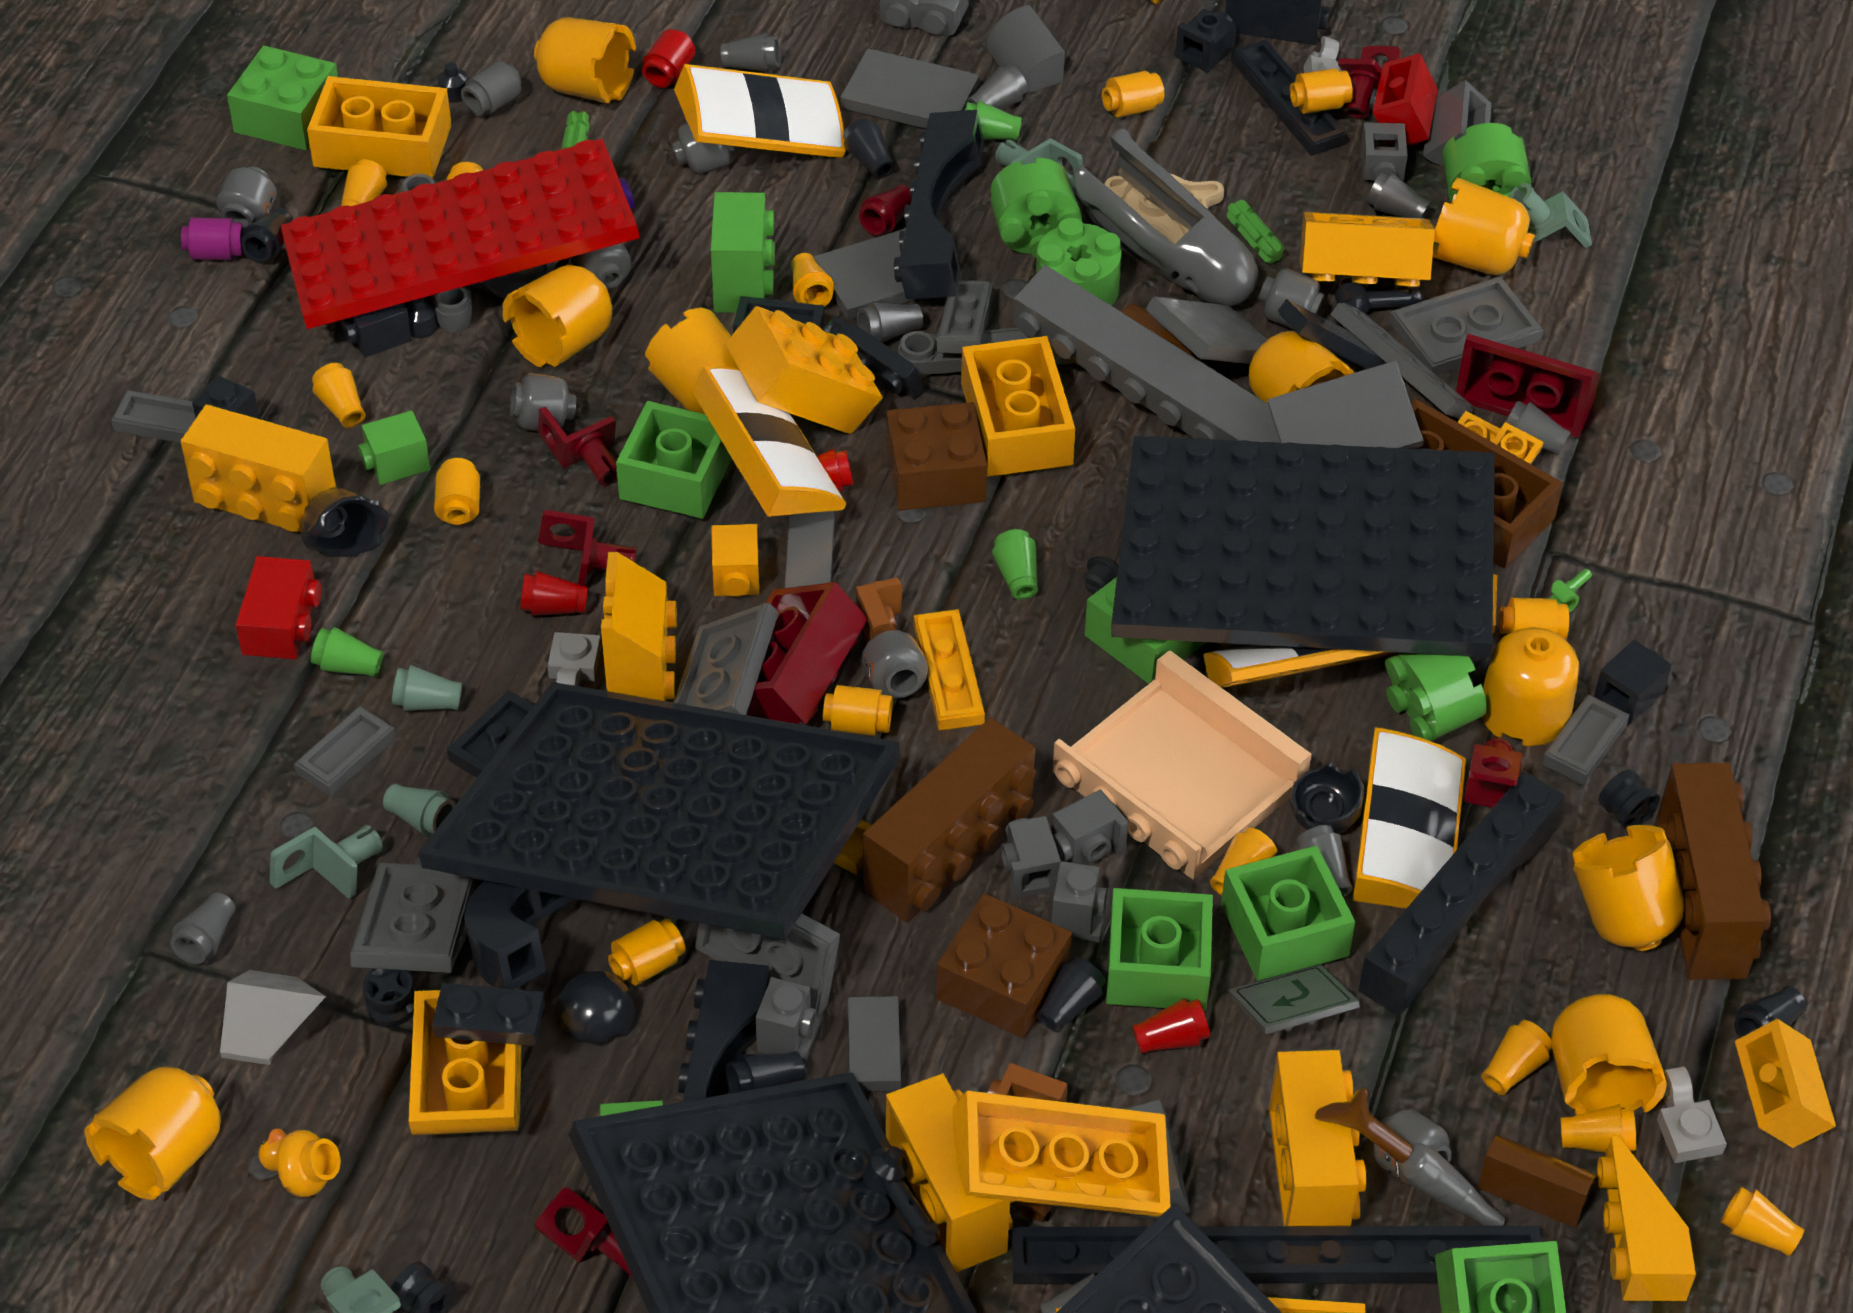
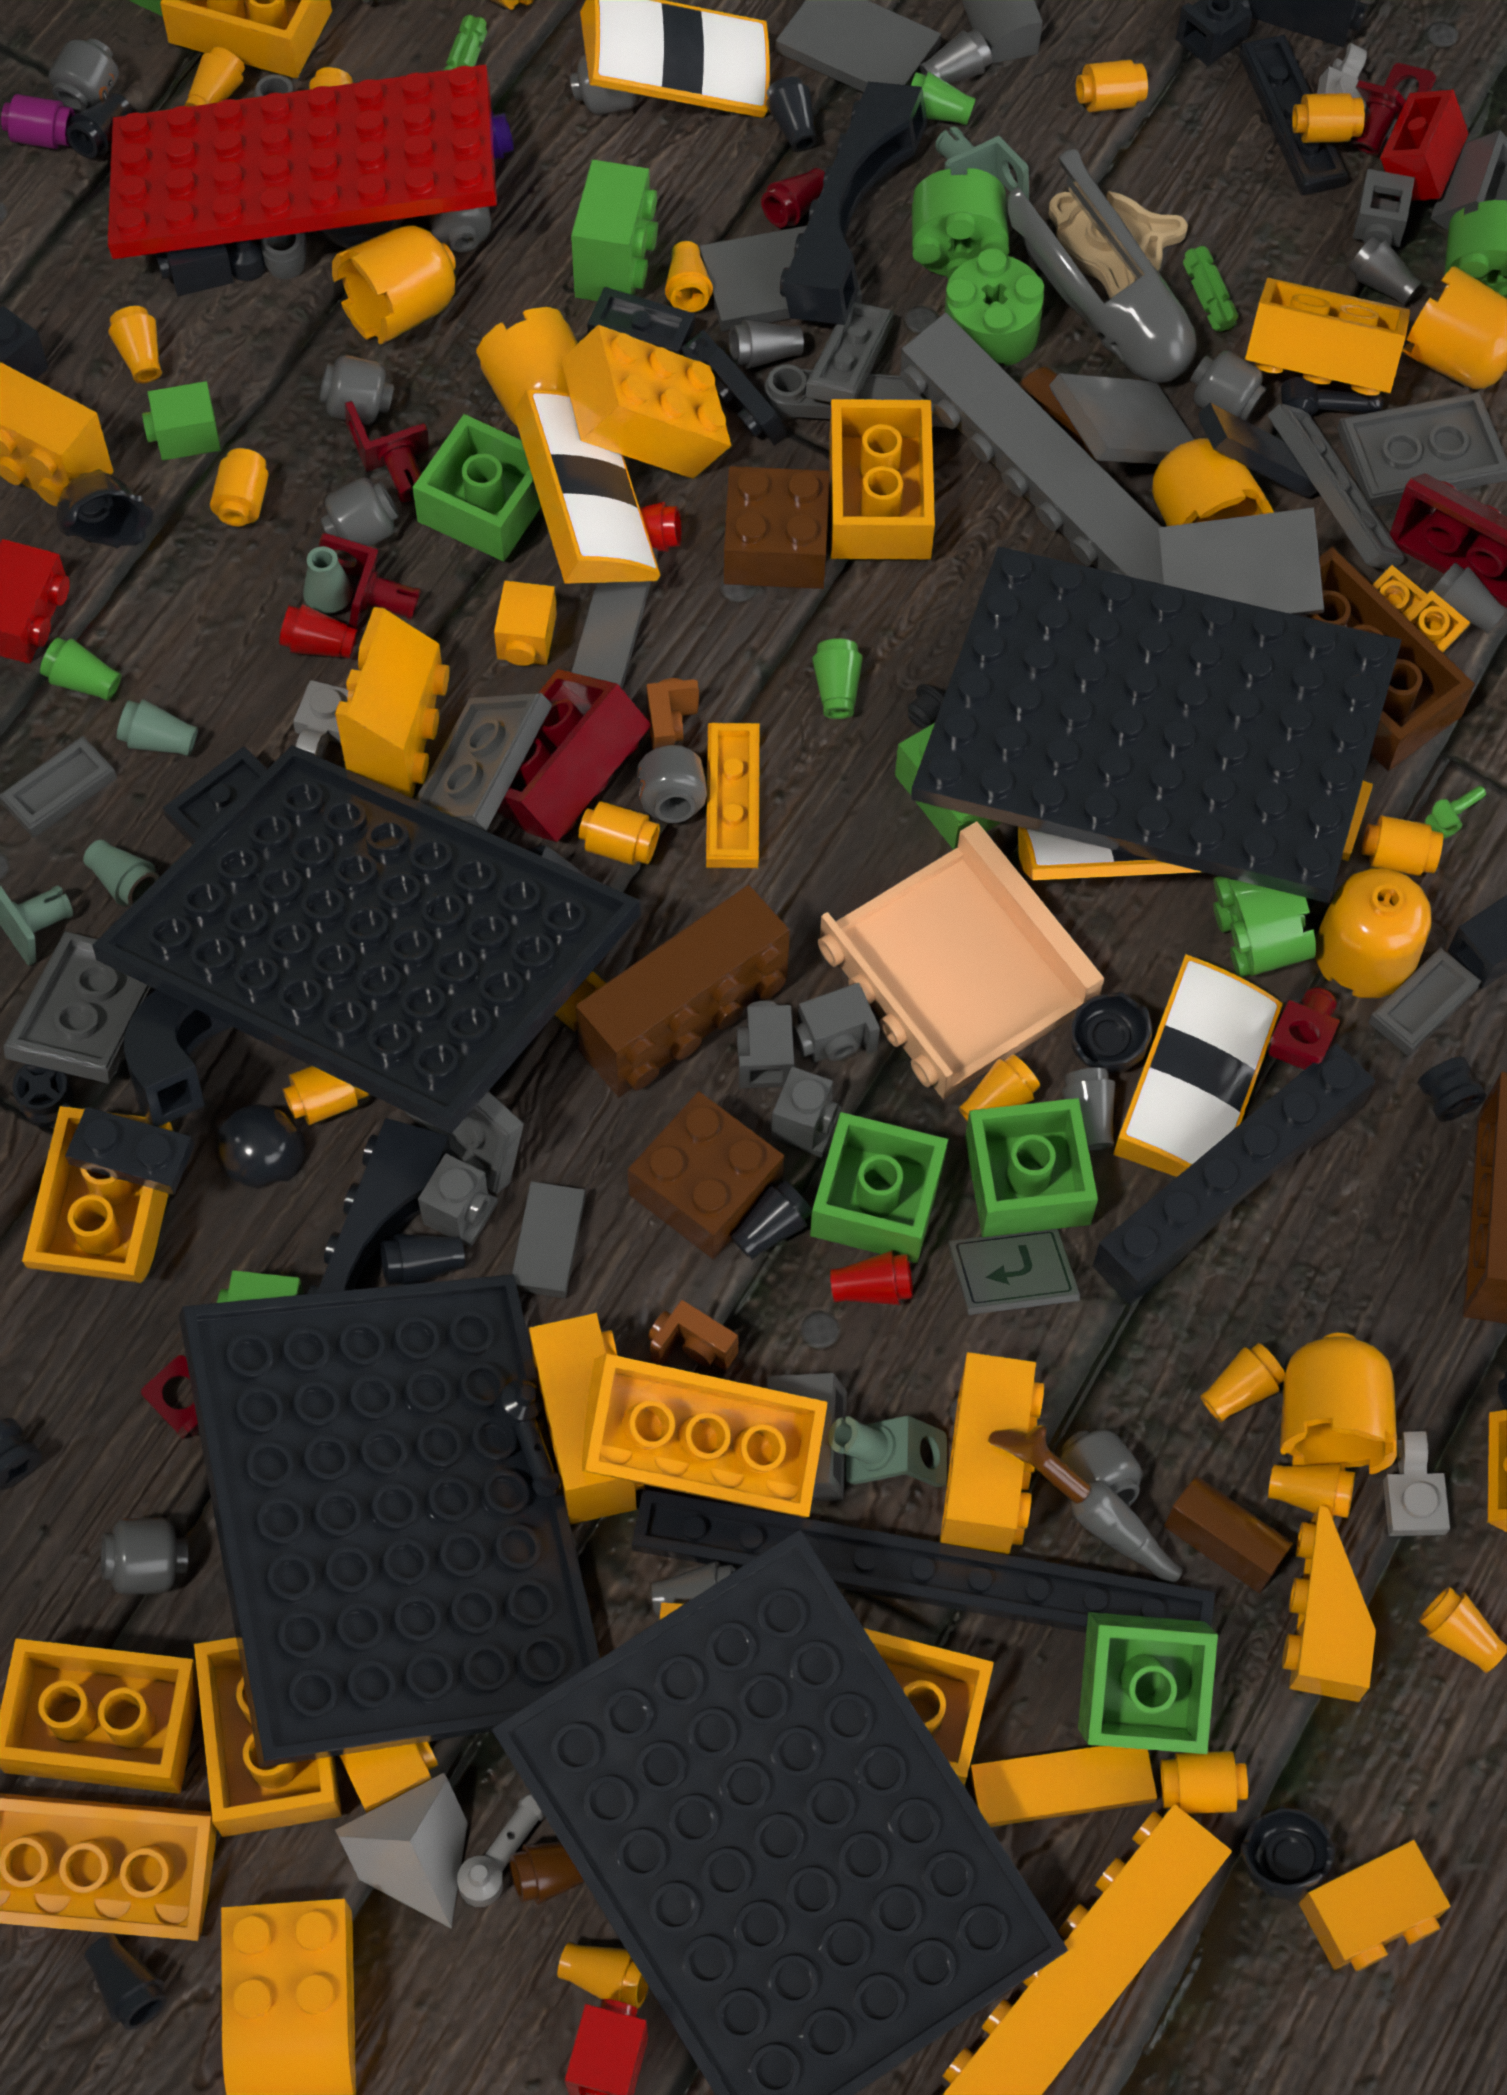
camera: 10 degrees right, 15 degrees up
(552, 551) = (326, 583): none -> sand green cone
(570, 492) = (360, 512): none -> dark grey head
(1220, 1159) = (889, 1449): none -> sand green bracket
(1630, 886) = (1419, 1205): light orange cylinder -> none

